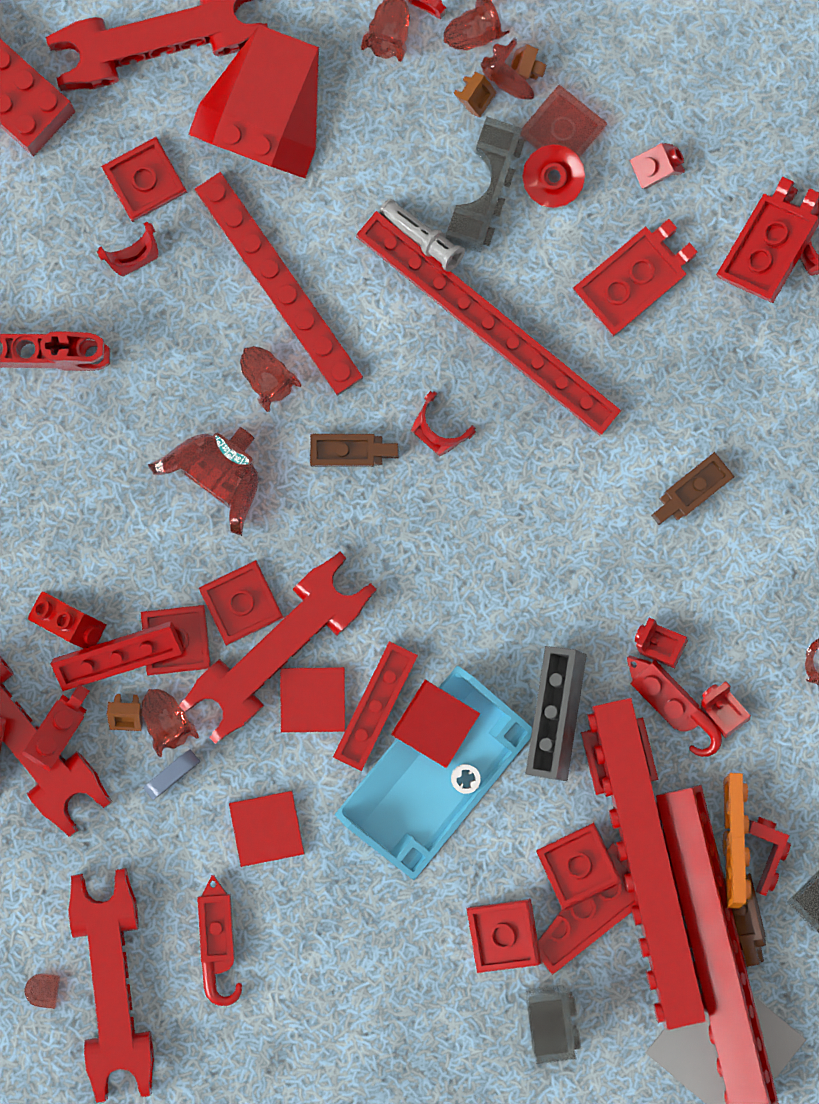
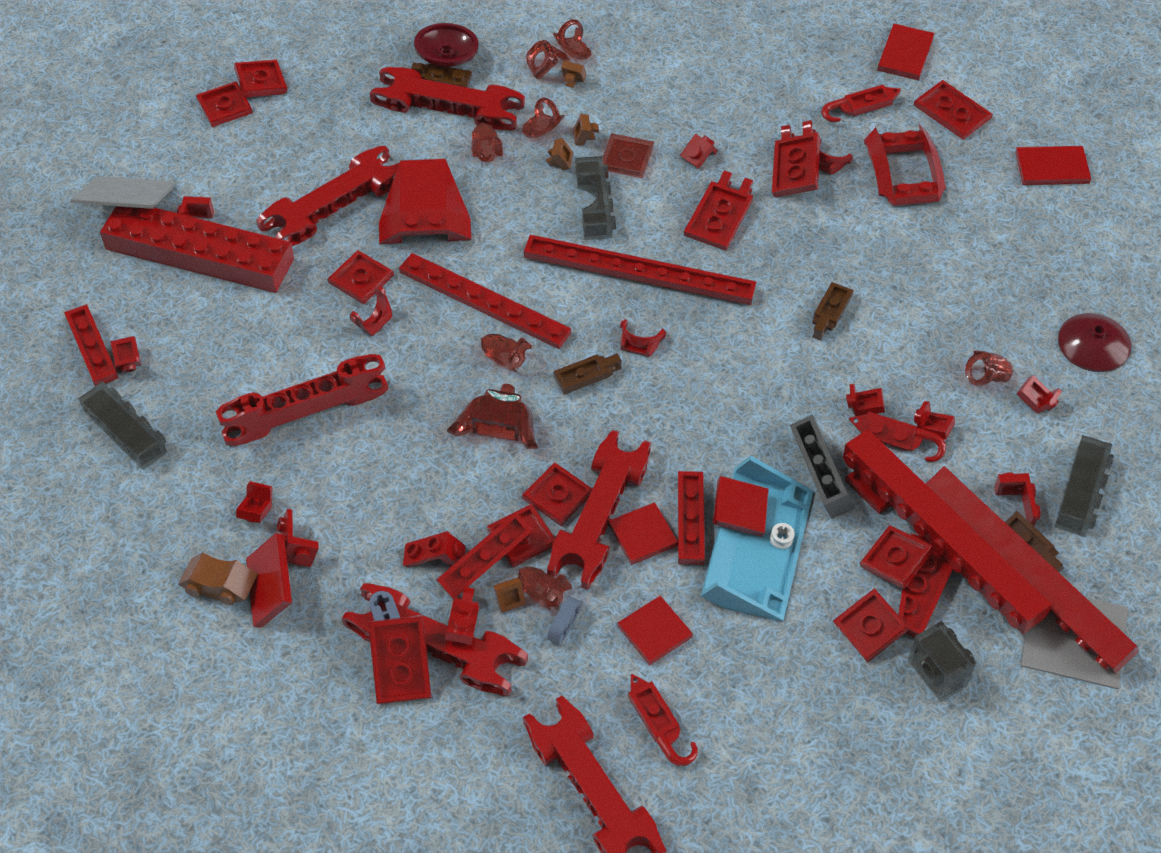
camera: 25 degrees left, 30 degrees down
(43, 990) = (539, 816): clear red tile -> none
(432, 241) = (578, 233): light grey pin -> none
(504, 75) = (575, 136): clear red piece -> none
(537, 172) = (634, 168): red dish -> none
(733, 841) = (996, 495): orange hinge -> none

